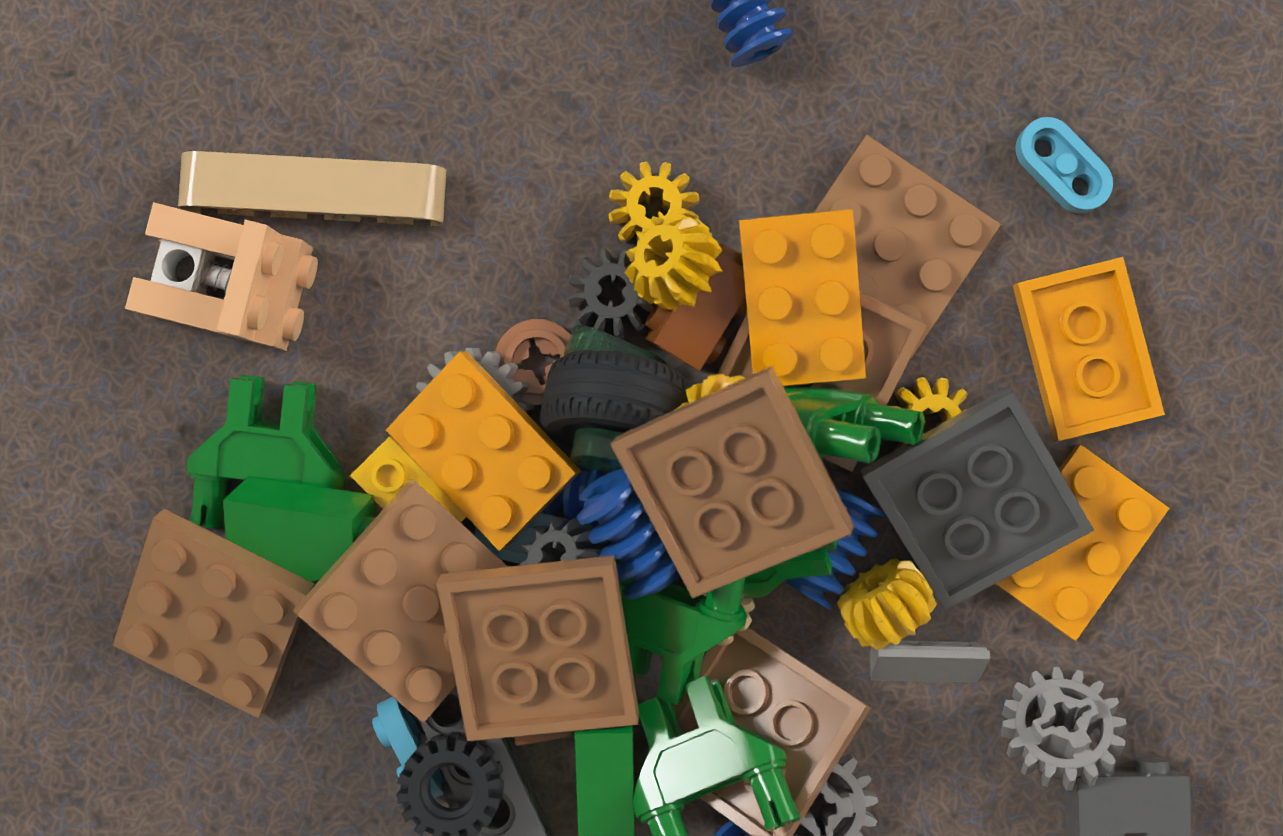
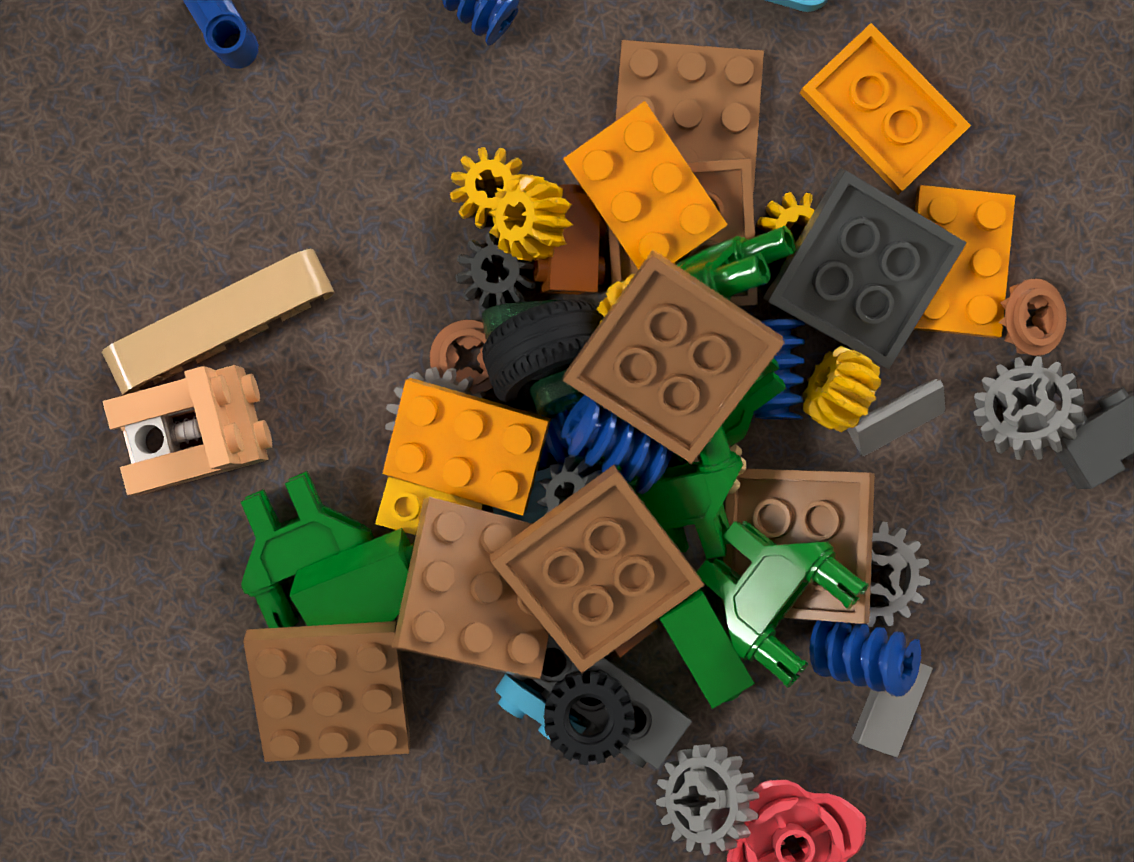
camera: 25 degrees left, 0 degrees up
(1130, 652) = (1048, 319): none -> nougat gear

